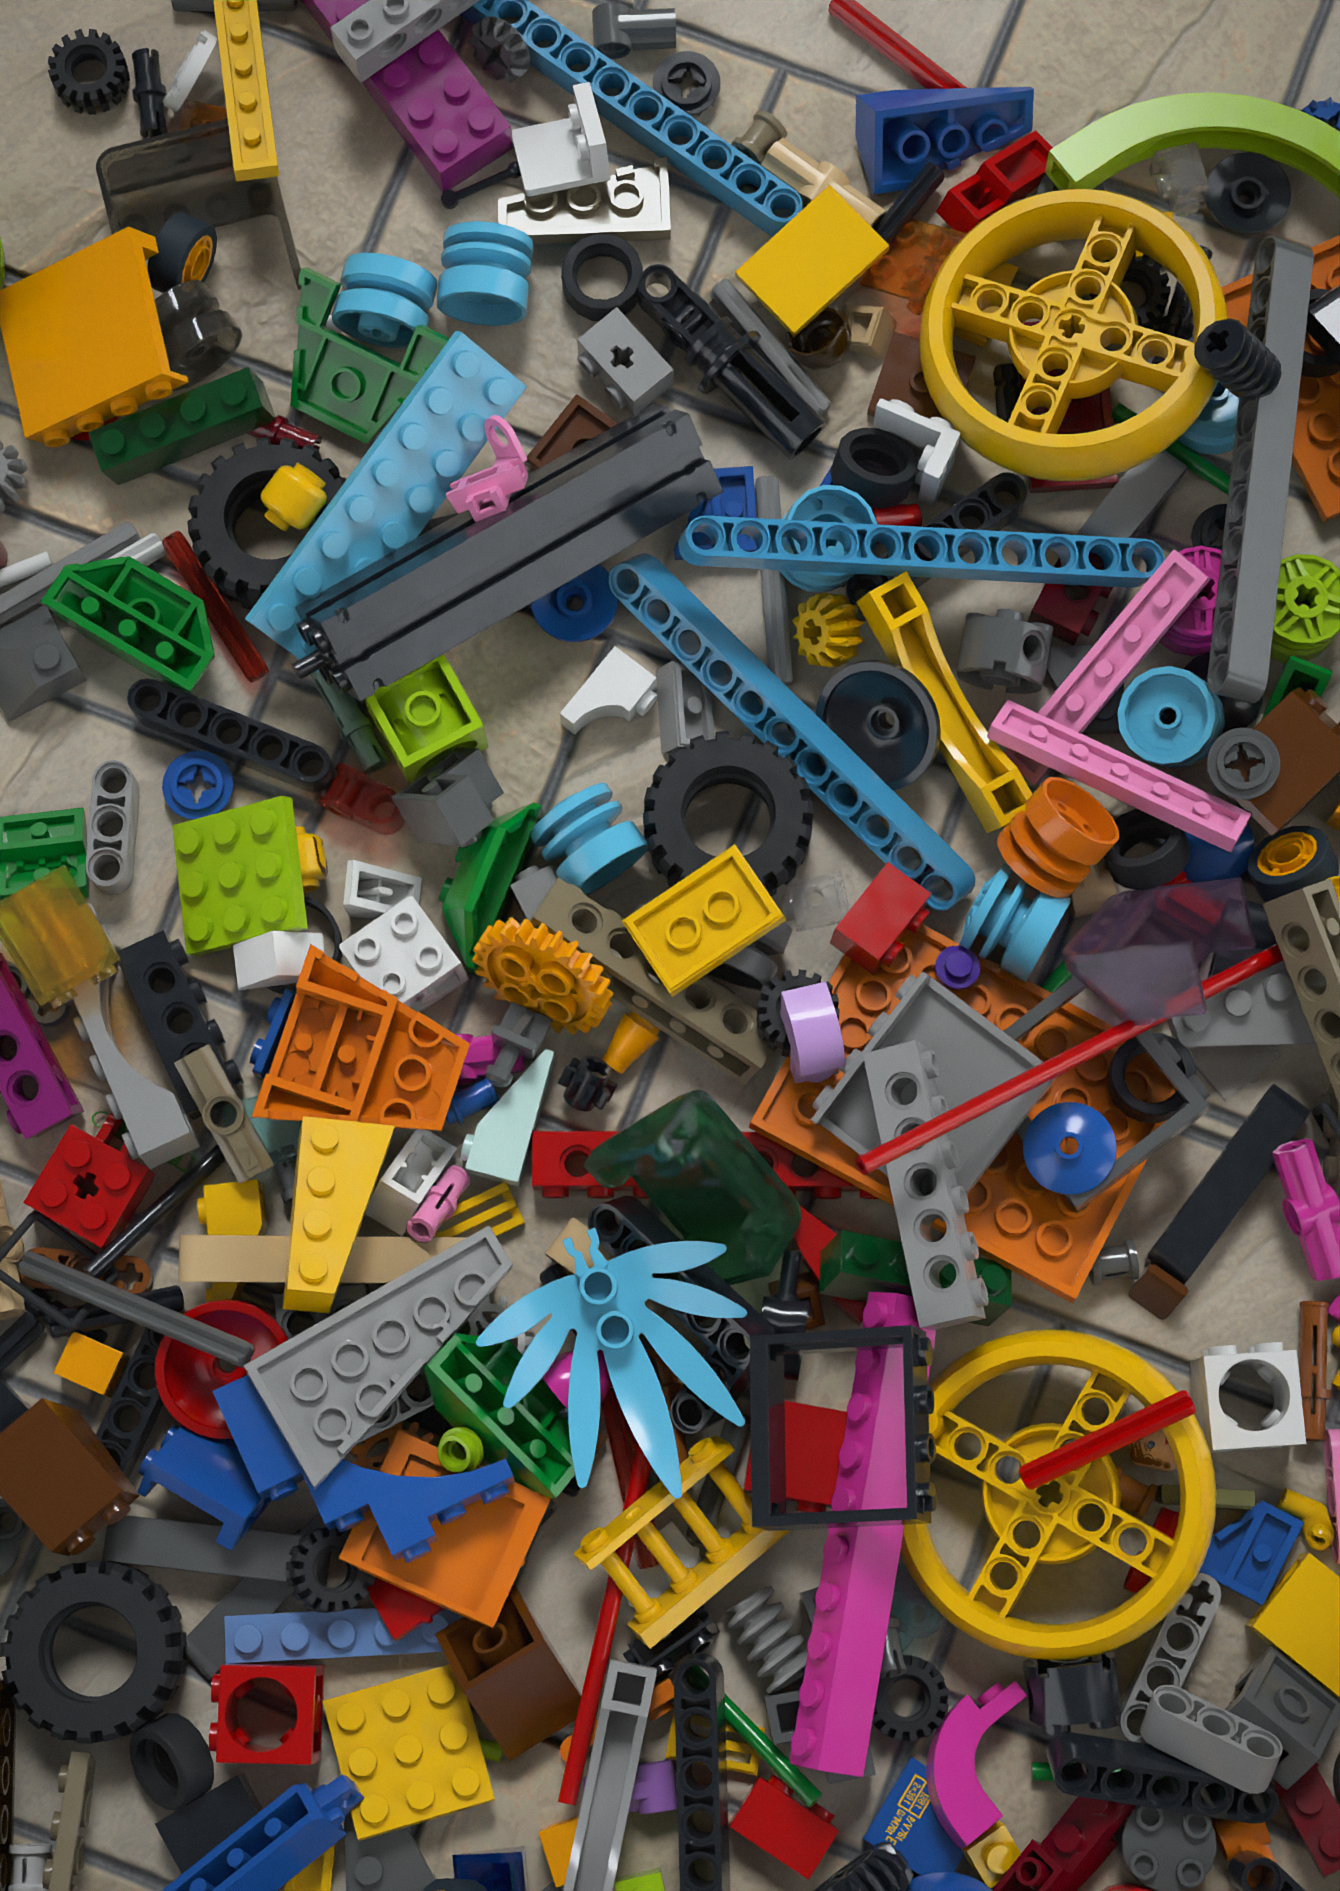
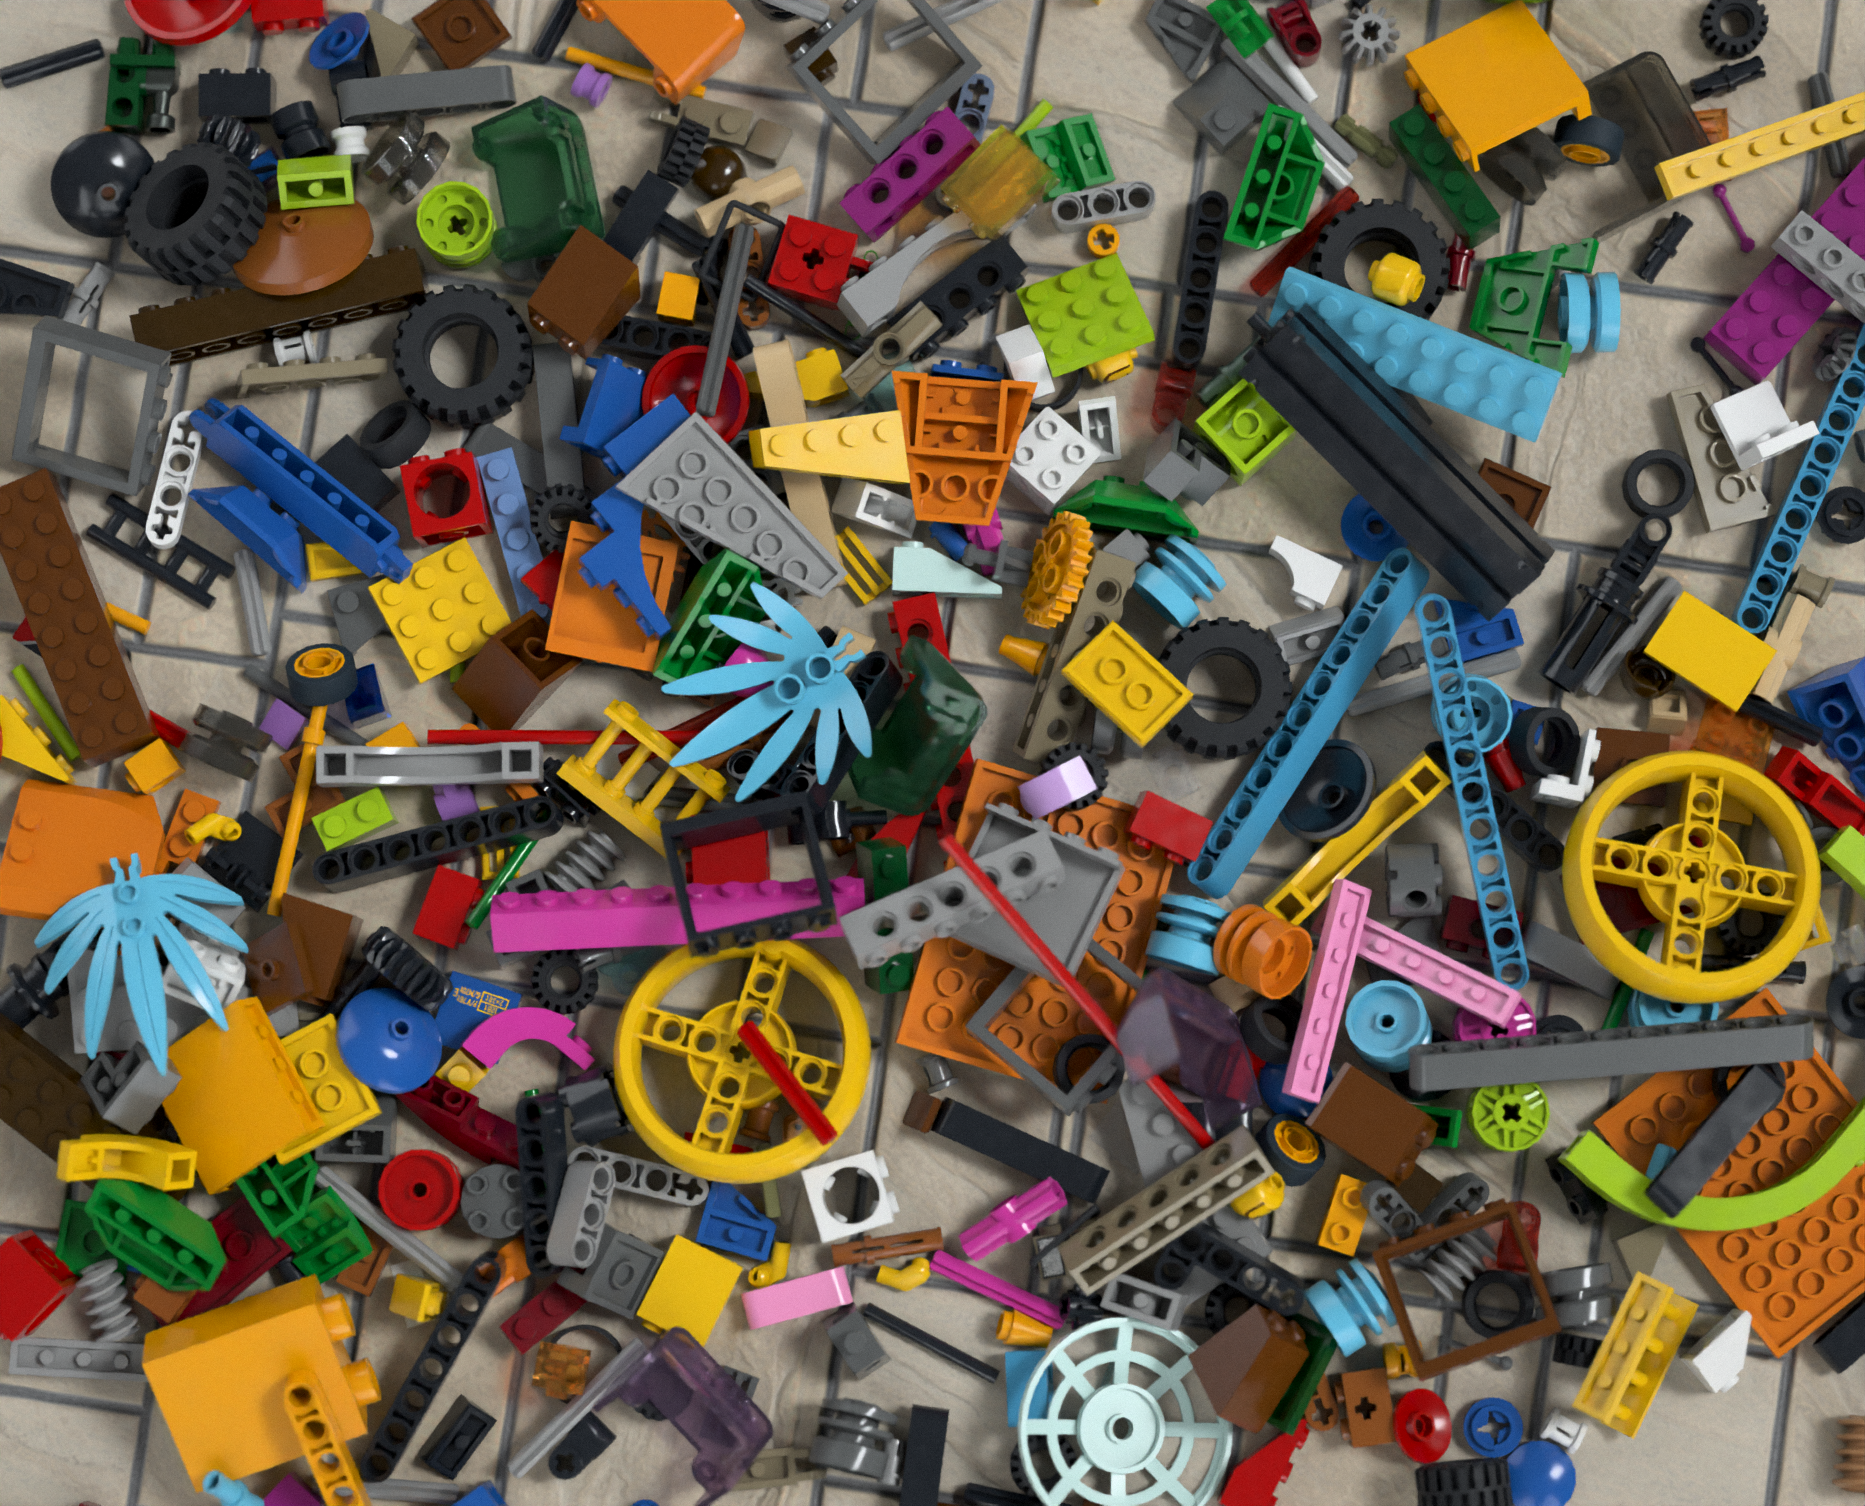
camera: 80 degrees right, 5 degrees up
(115, 509) = (1366, 141): none -> olive axle
(143, 830) = (1097, 250): none -> light orange bush
(184, 772) = (1164, 252): blue gear -> none
(189, 71) = (1750, 106): white tile -> none
(327, 208) = (1663, 247): none -> black pin
(346, 119) = (1747, 244): none -> magenta hinge
(428, 1218) = (846, 526): bright pink pin -> none
(451, 1455) = (672, 593): lime plate -> none
(485, 273) = (1638, 387): medium azure wheel -> none
(490, 489) = (1443, 434): bright pink piece -> none
(587, 1083) = (984, 627): black gear -> none
(619, 340) = (1582, 540): light grey brick -> none
(737, 600) = (1408, 657): none -> dark grey pin
(828, 630) = (1397, 734): yellow gear -> none
(957, 968) = (1142, 897): dark purple plate -> none
(1073, 1172) = (1014, 1028): blue dish -> none
(1237, 359) = (1687, 1008): black piece -> none
(1255, 747) = (1363, 1070): dark grey gear -> none

